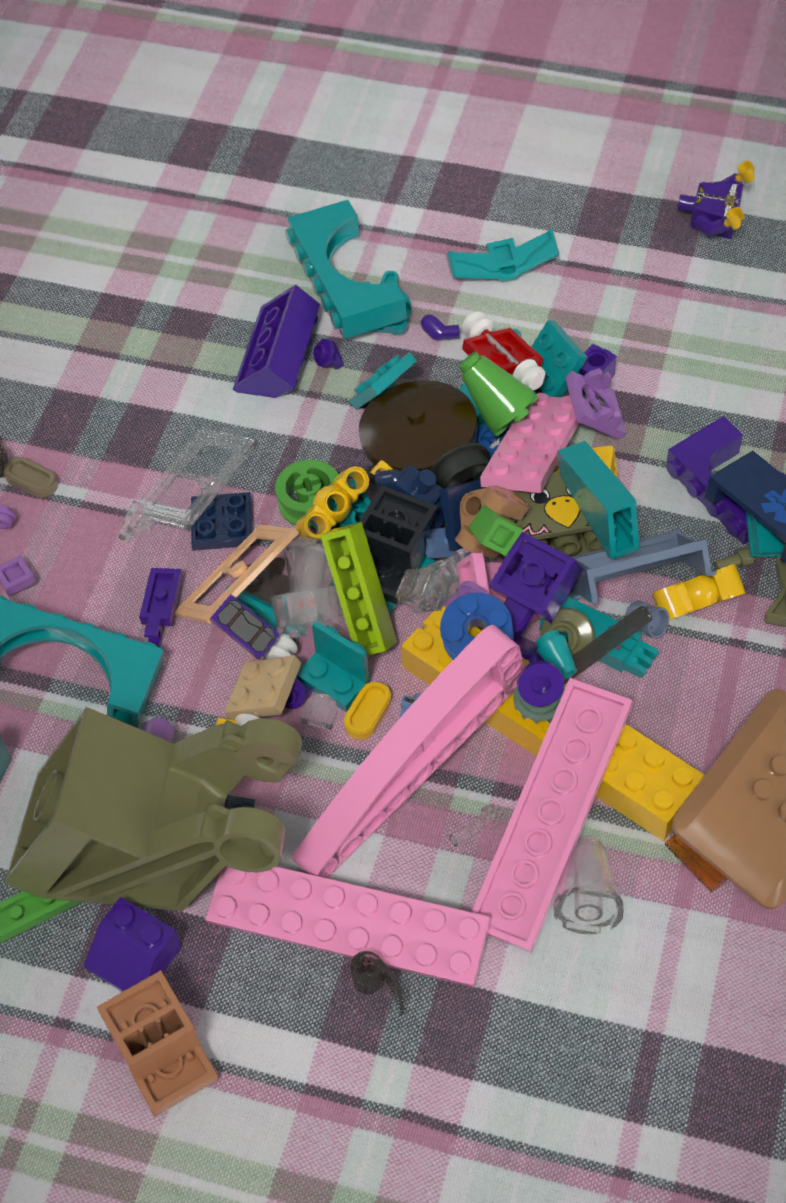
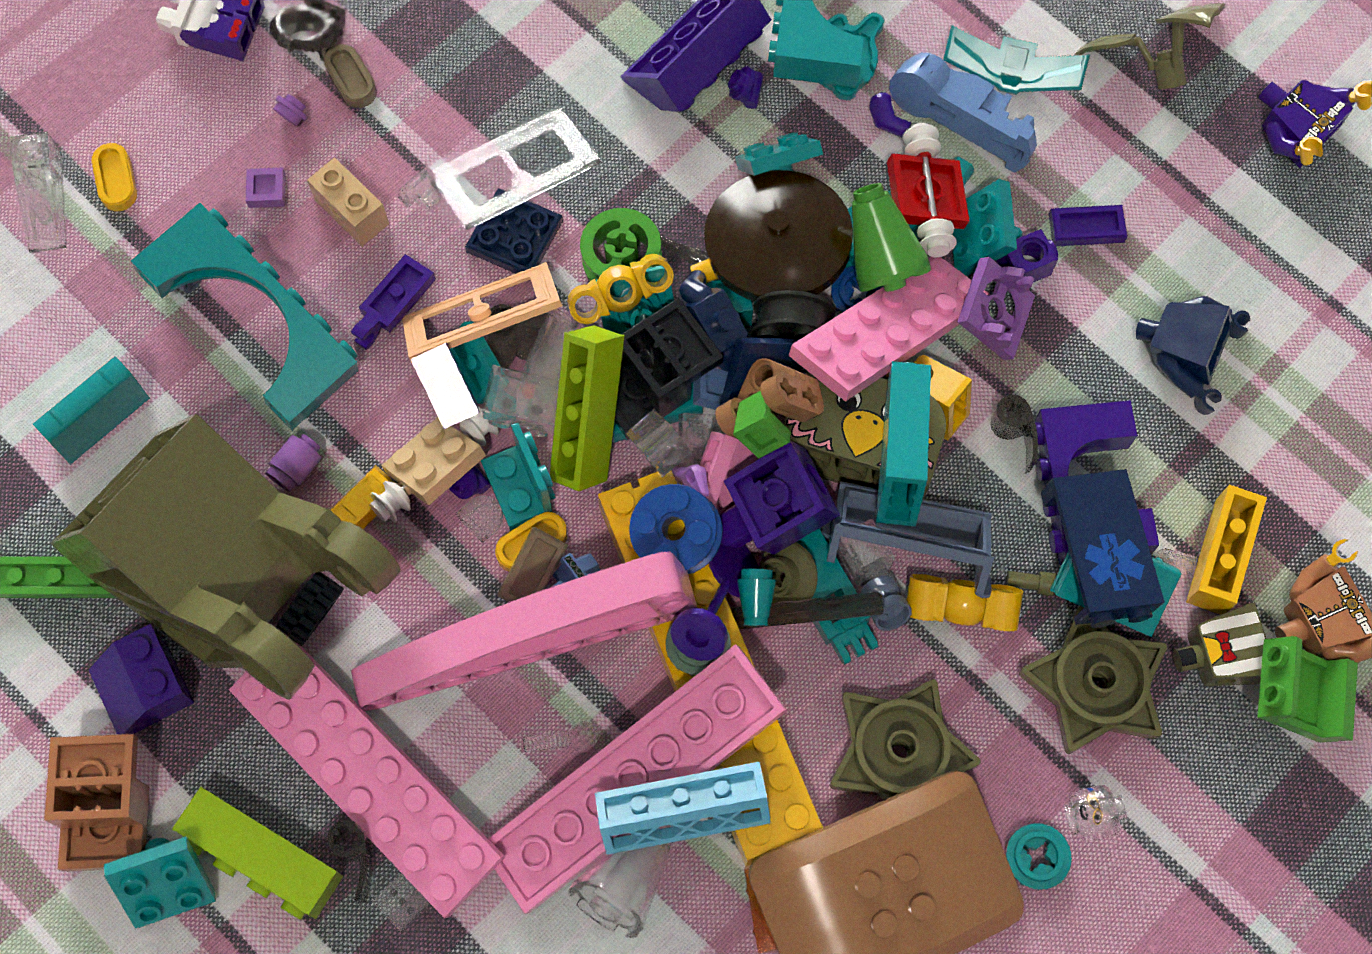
camera: 25 degrees right, 15 degrees up
(85, 554) = (348, 201): none -> tan brick
(243, 1072) = (159, 881): none -> teal plate
(302, 1018) = (257, 853): none -> lime brick
(380, 716) = (532, 566): none -> dark tan tile
(432, 996) = (401, 902): none -> clear tile
(457, 296) = (964, 105): none -> medium blue piece
(602, 799) = (682, 804): none -> medium azure fence
(607, 212) = (1169, 62): none -> olive plant
(613, 596) = (864, 558): none -> clear brick
(619, 332) = (1087, 225): none -> dark purple tile
(655, 467) = (1024, 426): none -> clear smoke panel
(713, 703) = (908, 721): none -> olive plate
(738, 369) = (1190, 343): none -> dark blue torso

